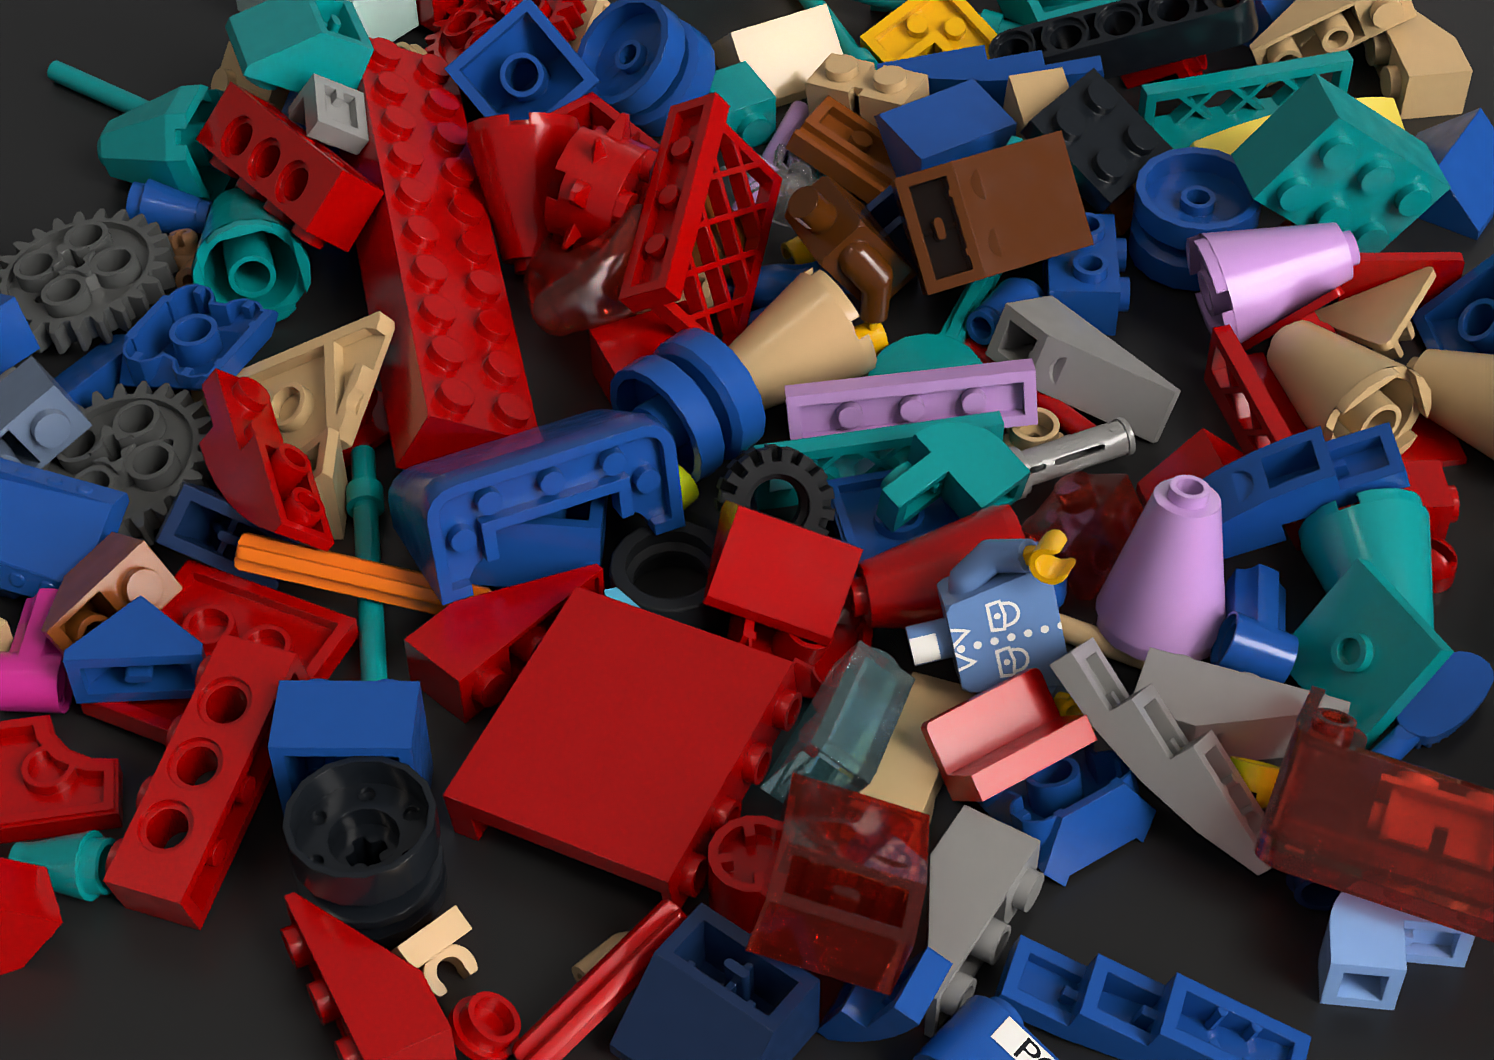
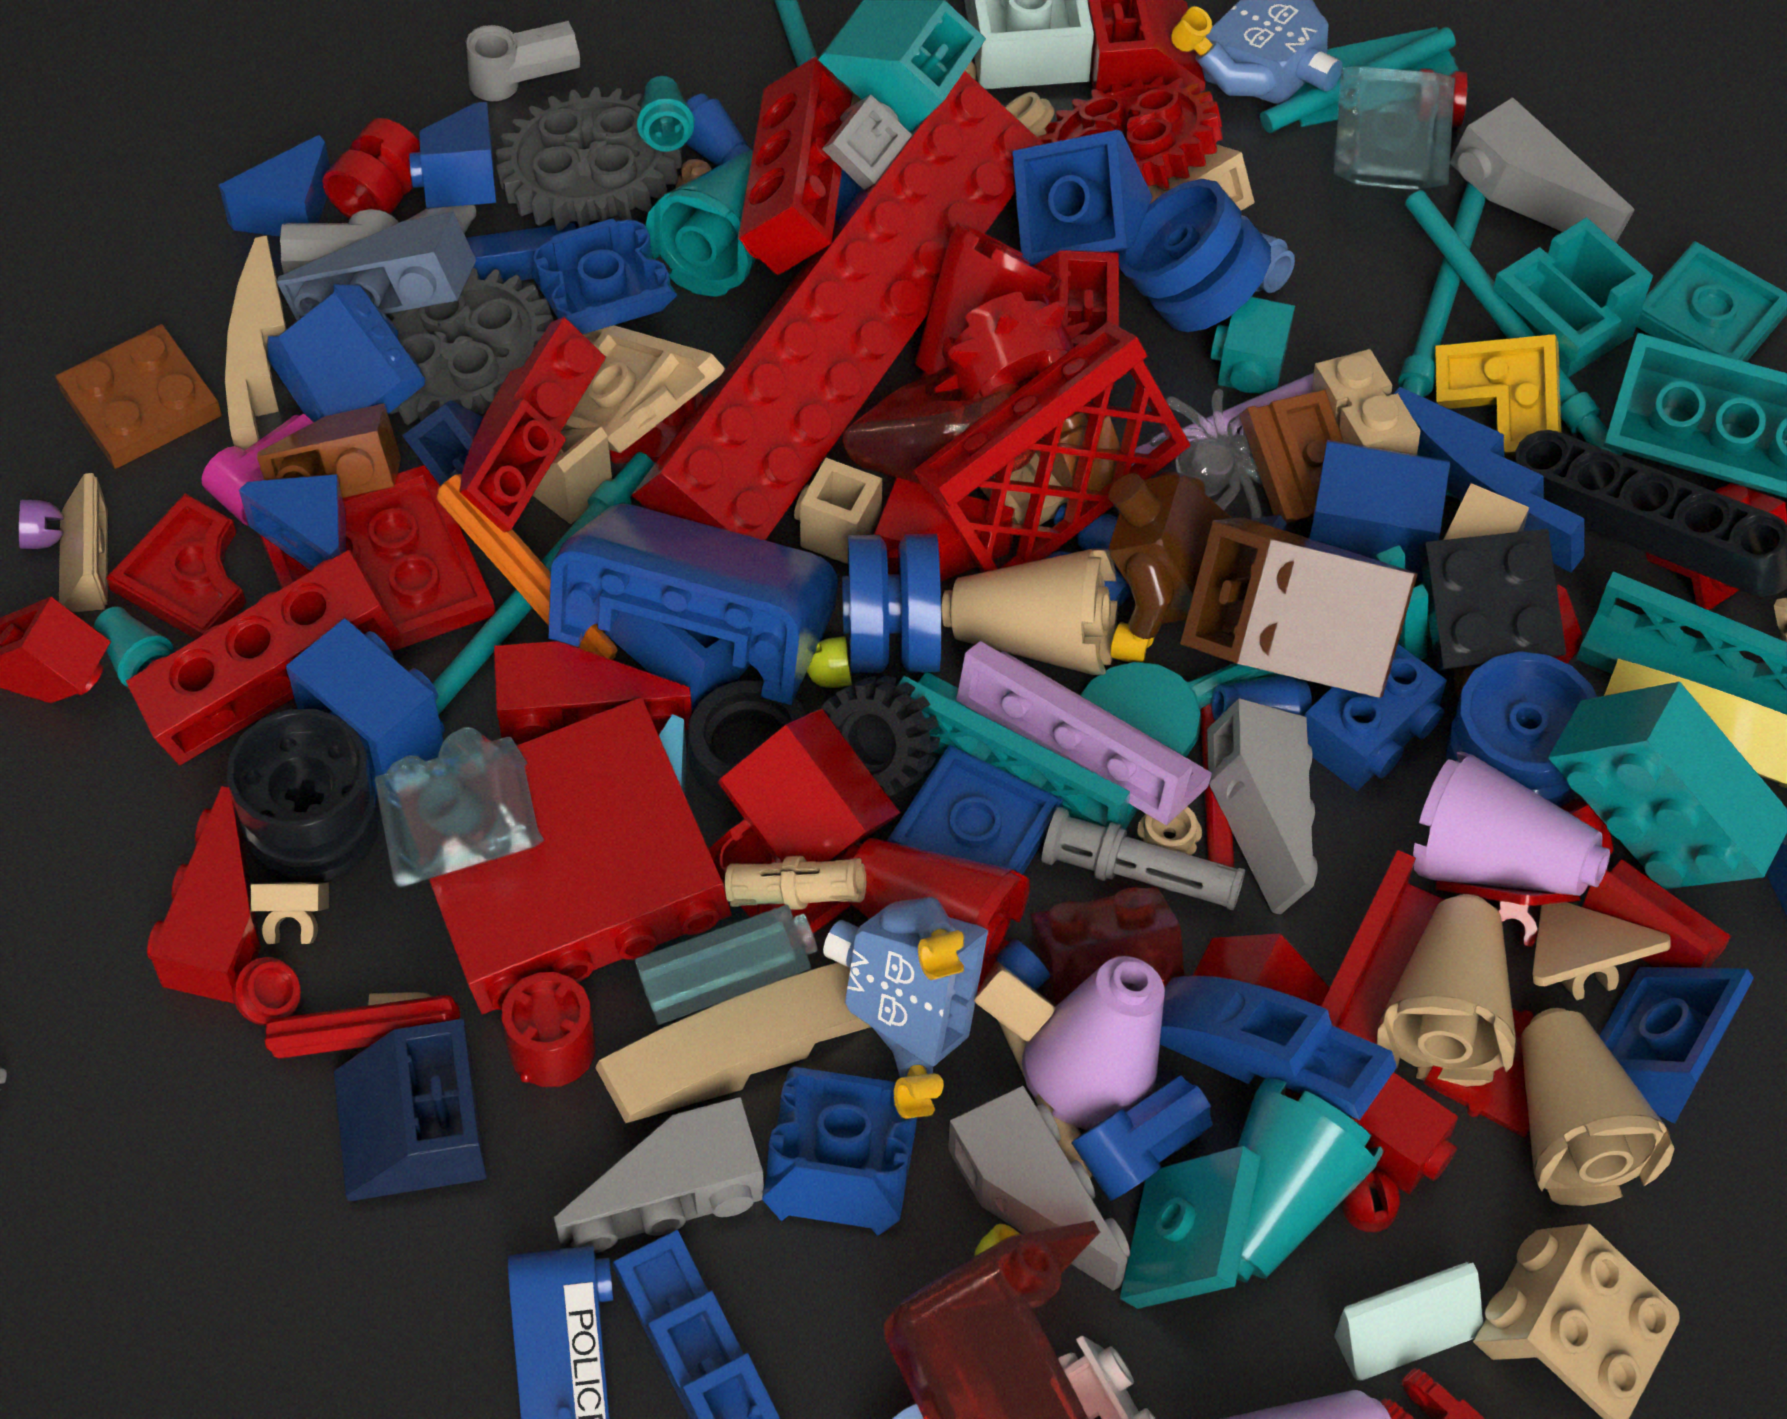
camera: 40 degrees right, 10 degrees up
(130, 202) = (664, 115): none -> teal cone
(162, 143) = (747, 60): teal cone -> none
(518, 760) = (456, 807): none -> clear light blue slope
(567, 376) = (838, 505): none -> tan brick
(782, 50) = (1352, 314): slope -> none
(843, 625) = (795, 882): none -> tan pin
(843, 885) = (565, 1079): clear red slope -> none
(871, 1016) = (527, 1194): blue slope -> none
(952, 462) = (1034, 810): teal brick -> none
(1002, 737) = (822, 1067): panel -> none
(1090, 594) = (1013, 1002): none -> tan slope
(1187, 776) = (928, 1154): light grey slope -> none
(1440, 705) = (1218, 1321): blue piece -> none

